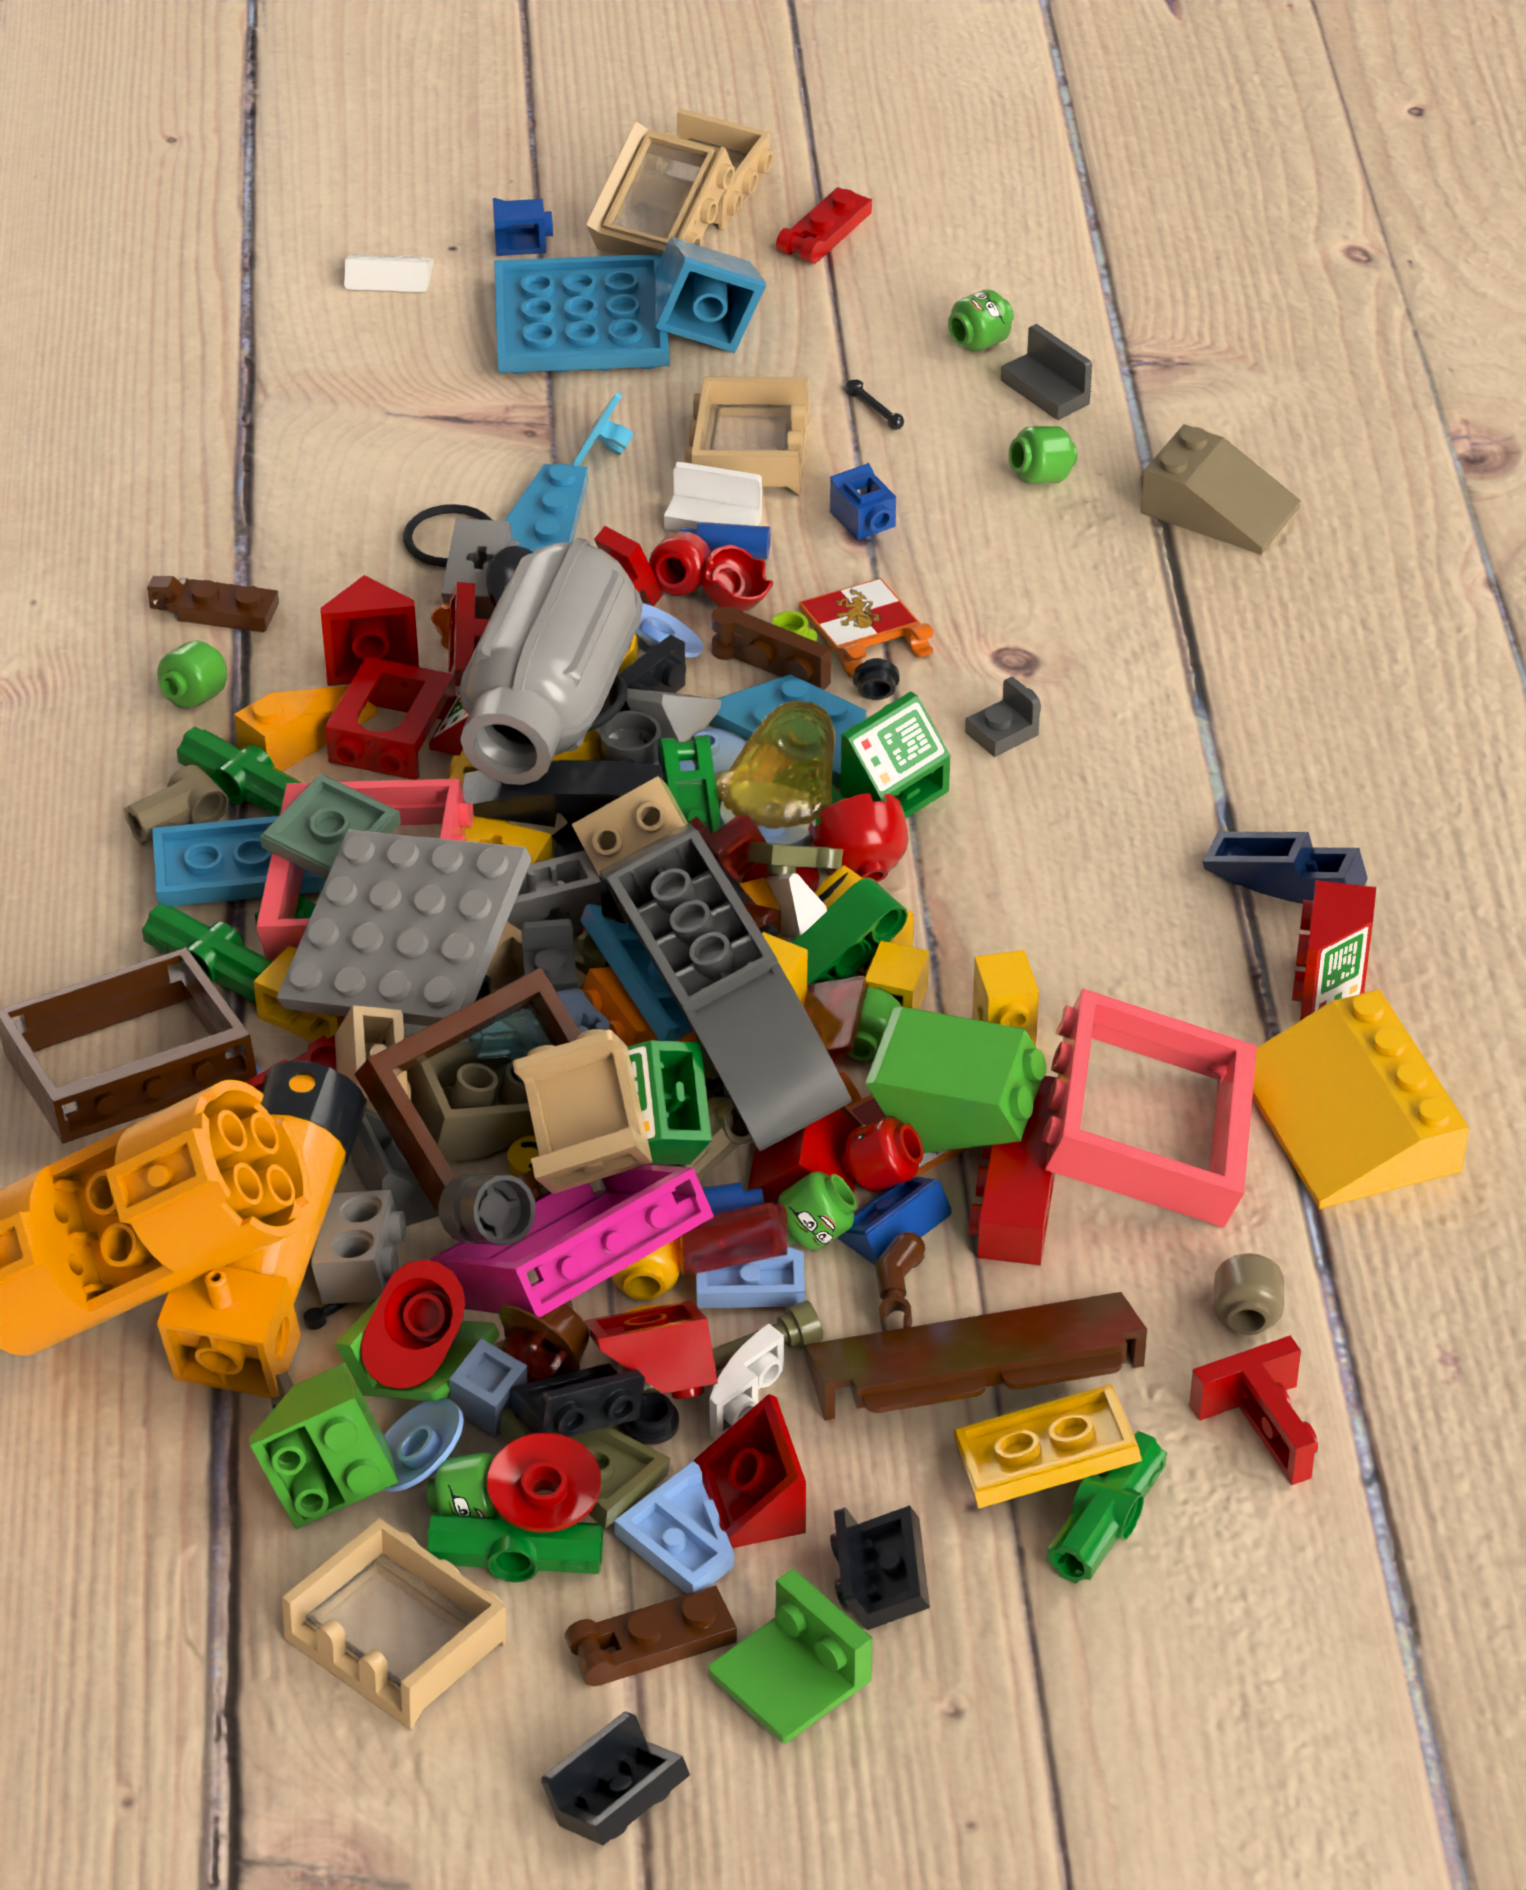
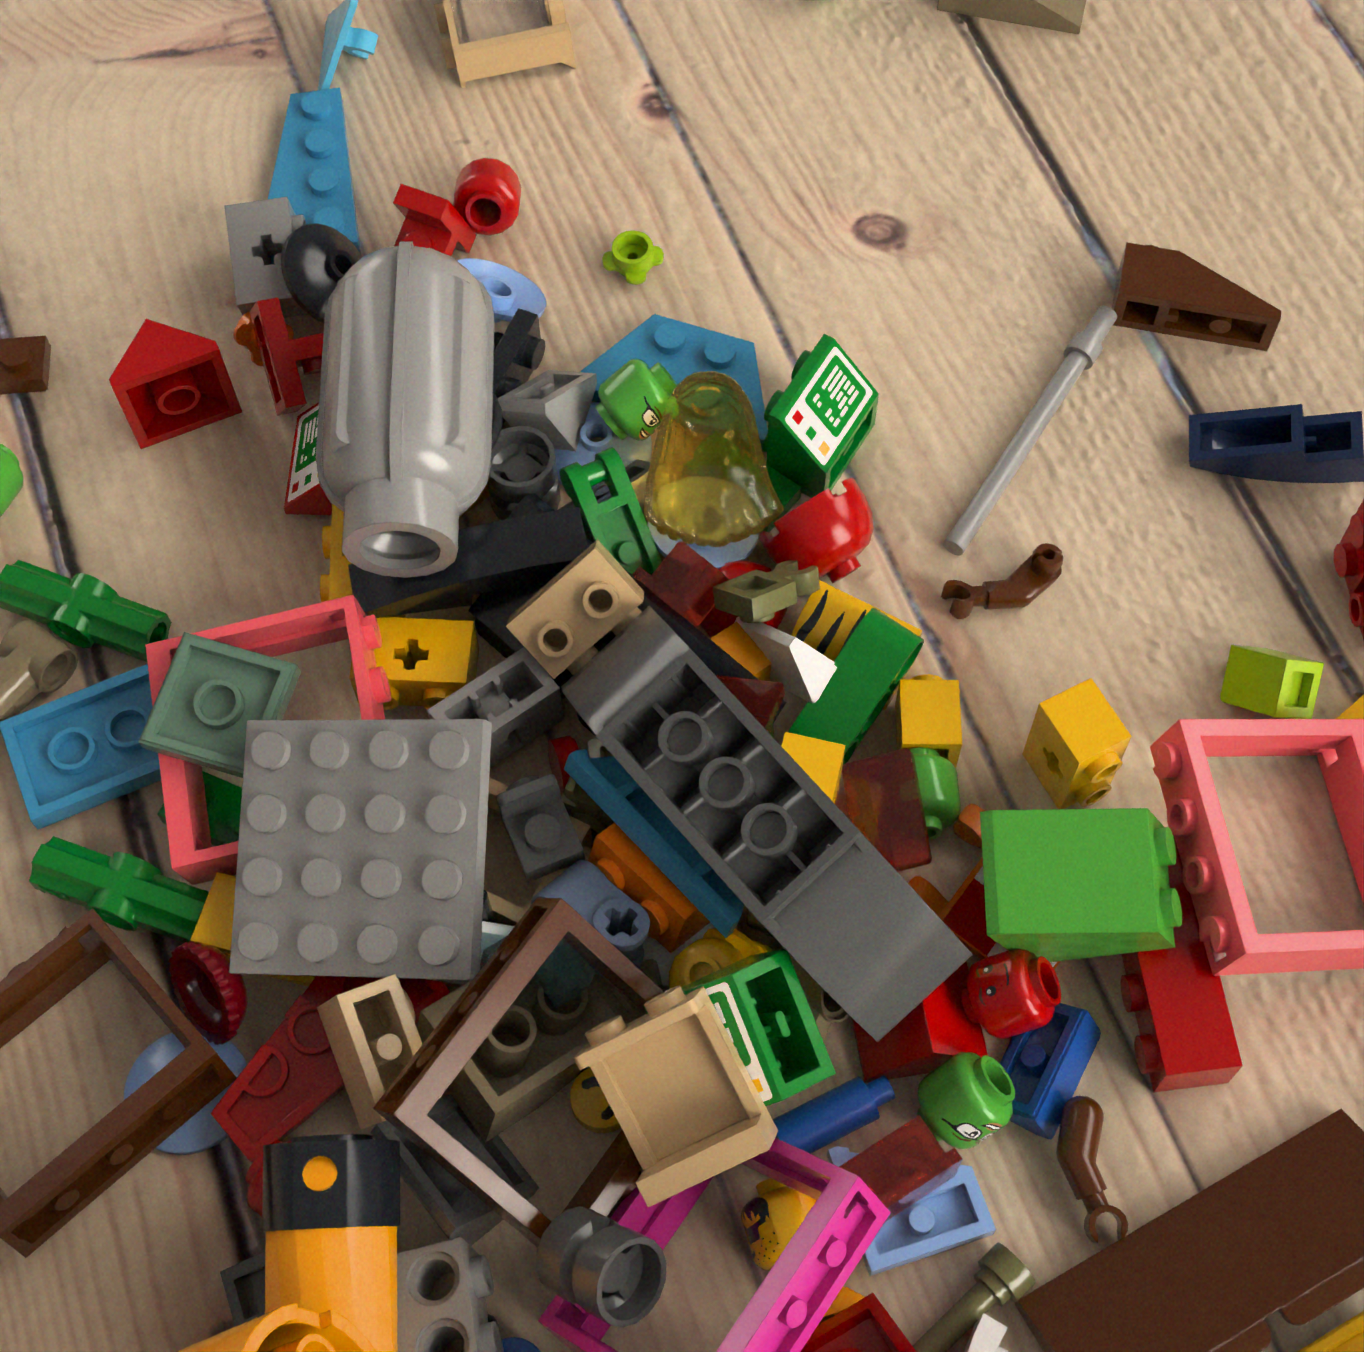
camera: 15 degrees left, 20 degrees up
(260, 1013) = (207, 990): none -> dark red hat
(291, 723) = (127, 518): light orange slope -> none
(394, 686) = (228, 440): red panel -> none
(430, 512) = (184, 184): black tyre -> none
(713, 497) = (494, 105): white panel -> none
(734, 578) = (553, 203): red hair -> none
(740, 714) = (635, 399): none -> bright green head
(749, 537) = (527, 147): blue cylinder -> none
(769, 647) = (621, 285): reddish brown plate -> none
(862, 512) = (651, 67): blue window -> none
(862, 618) = (702, 217): flag -> none
(876, 679) = (750, 298): black plate -> none
(1007, 721) = (906, 317): dark grey bracket -> none
(1013, 921) = (1015, 592): none -> reddish brown arm
(1145, 775) = (1079, 356): none -> light grey bar
(1202, 1008) = (1271, 682): none -> lime panel
(1254, 752) = (1183, 298): none -> reddish brown slope

